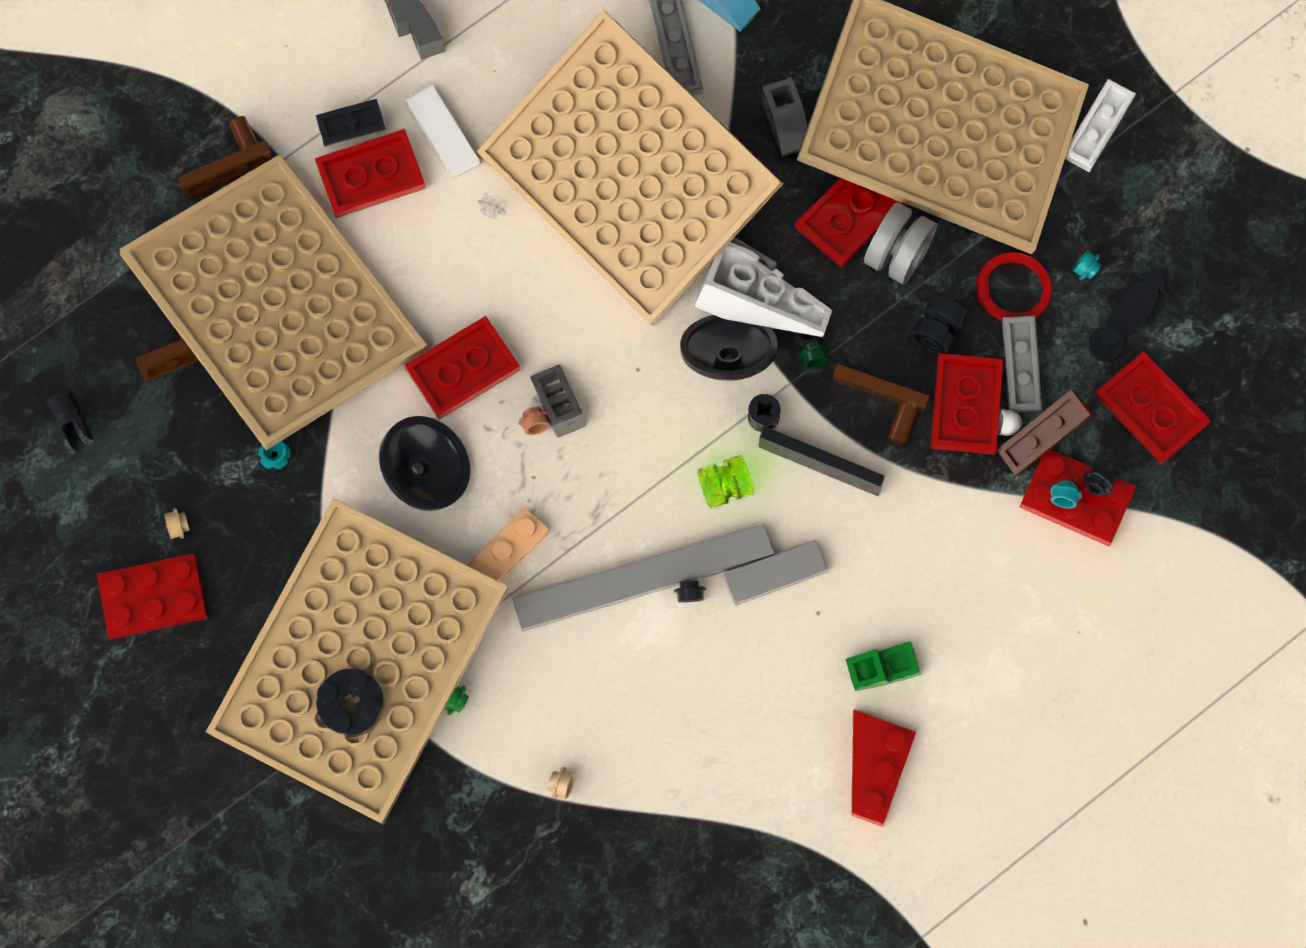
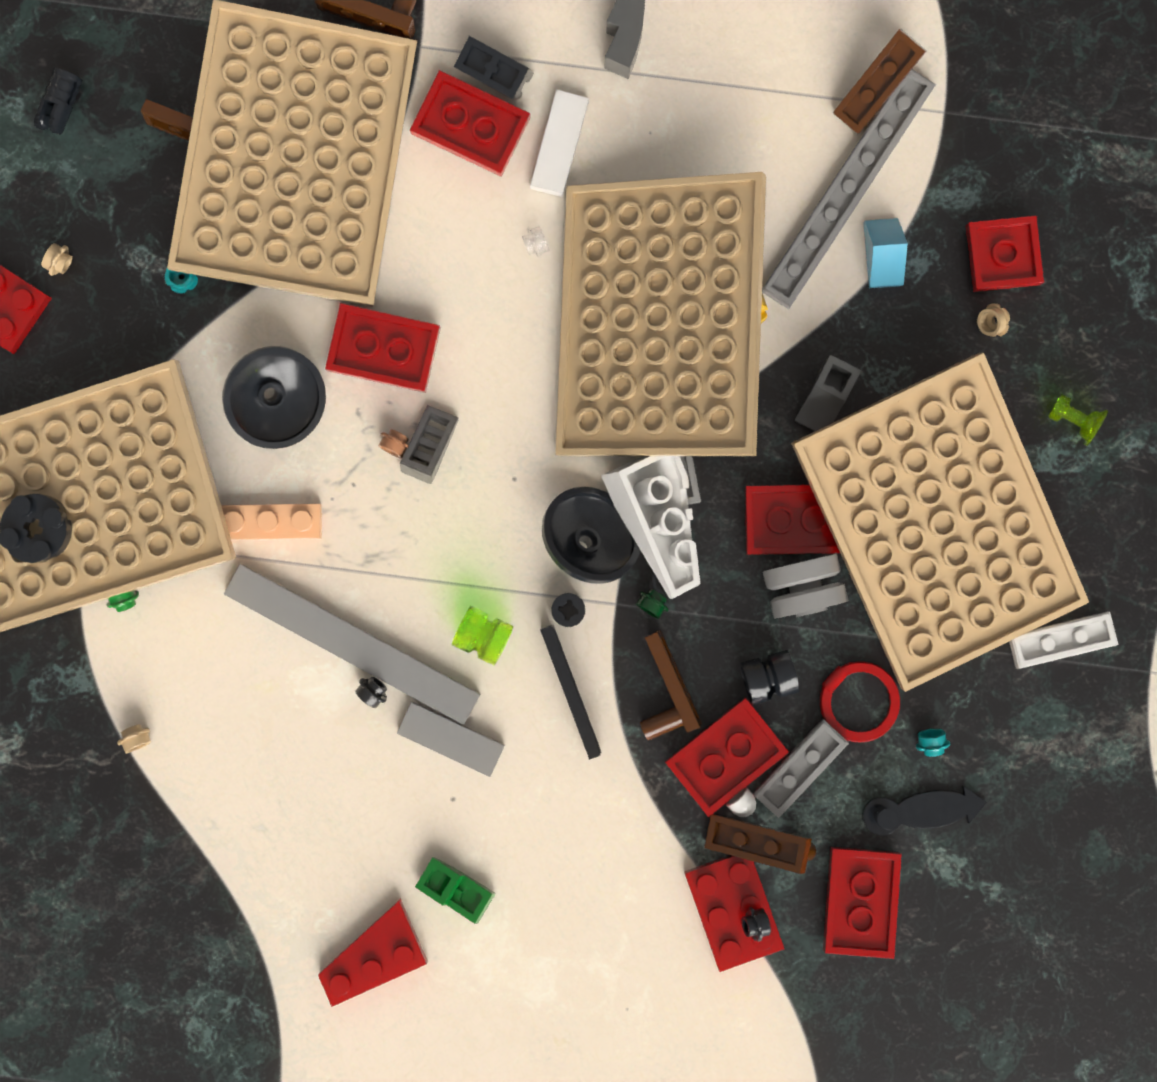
camera: 45 degrees right, 15 degrees up
(1065, 494) = (721, 906): teal plate -> none

